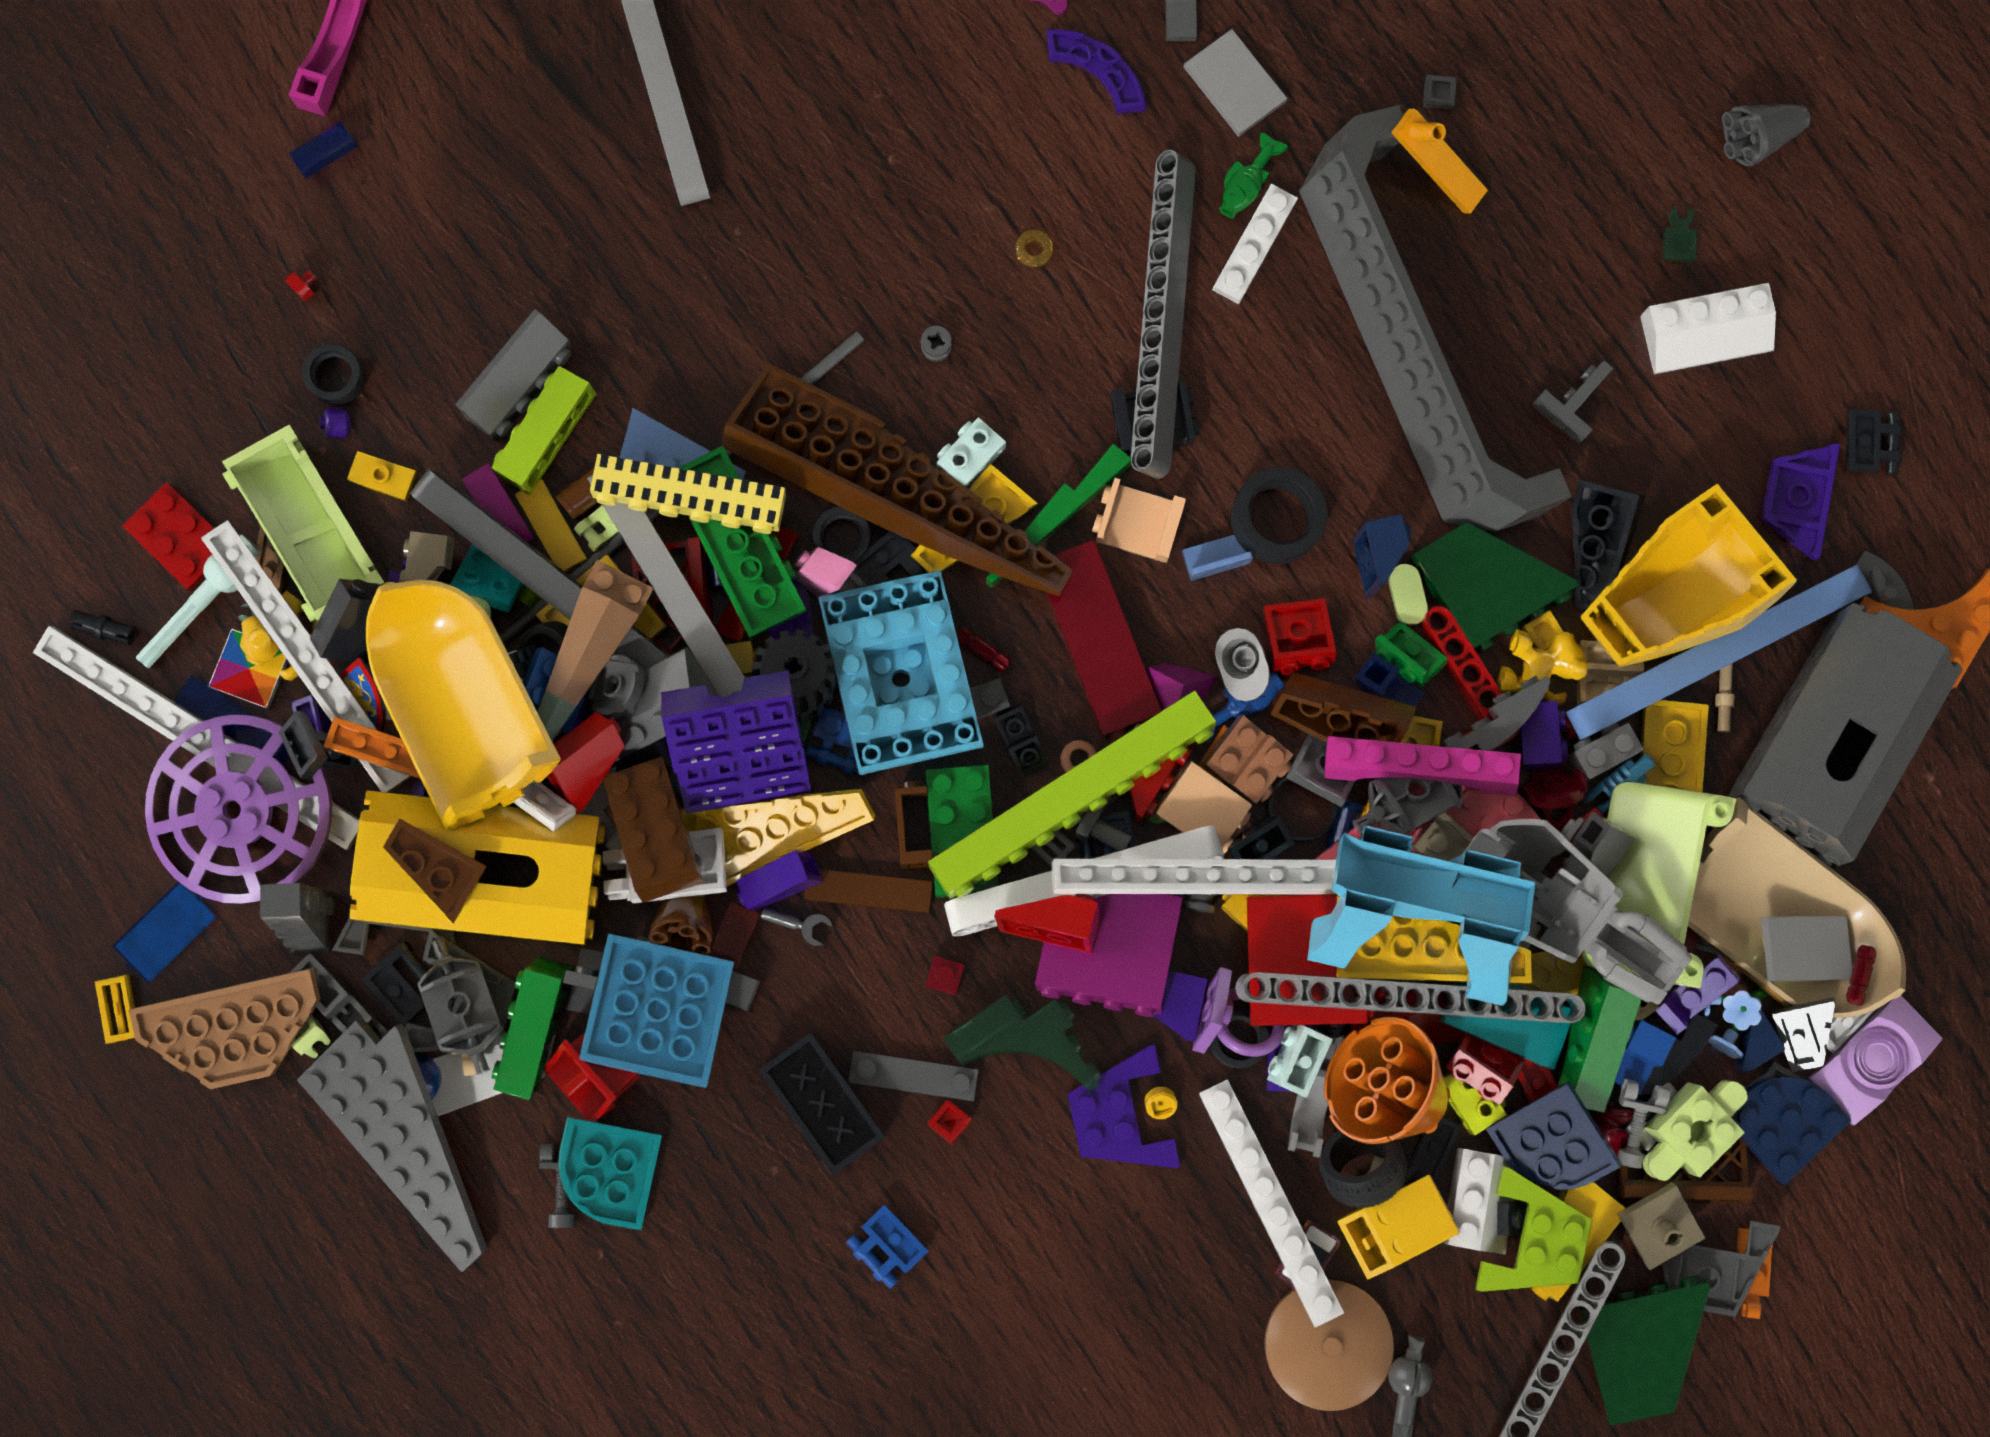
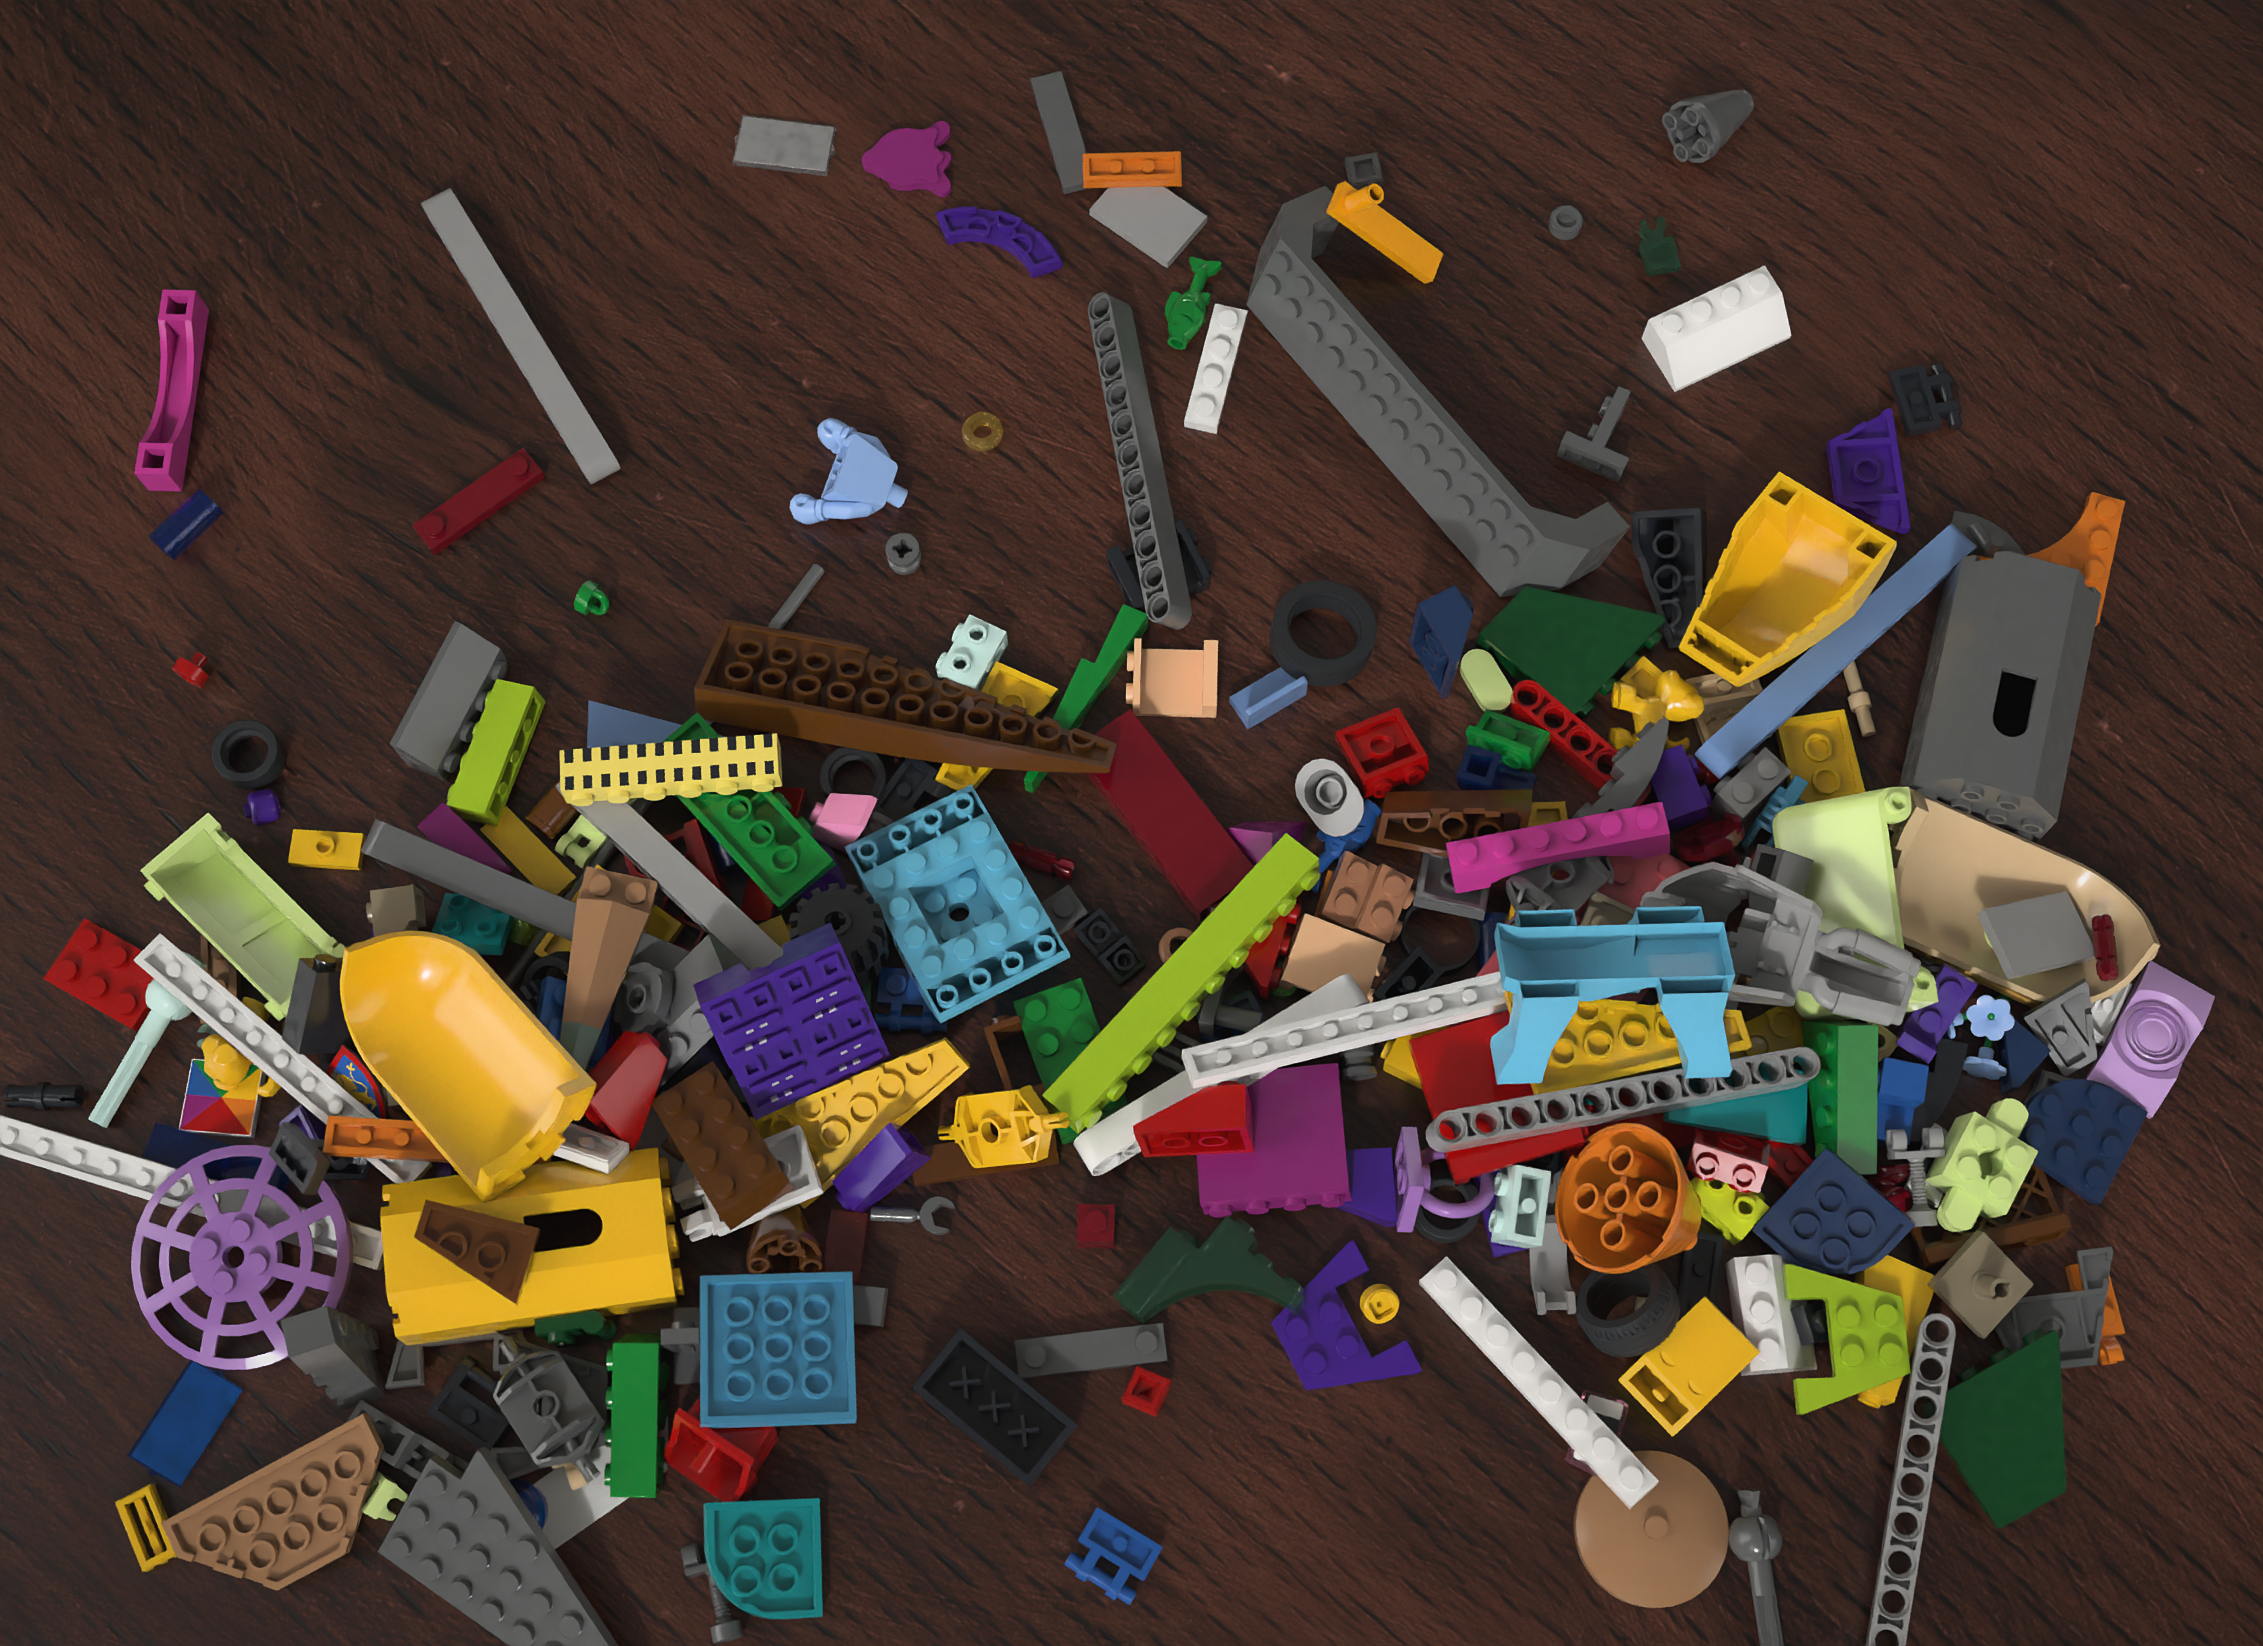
camera: 10 degrees left, 10 degrees down
(489, 944) = (568, 1328): none -> dark green plate
(580, 194) = (478, 501): none -> dark red plate
(653, 311) = (587, 598): none -> green tile
(903, 873) = (1021, 1124): none -> yellow plate
(915, 265) = (858, 479): none -> light blue torso
(1232, 36) = (1132, 169): none -> orange tile
(1606, 189) = (1565, 222): none -> dark grey tile

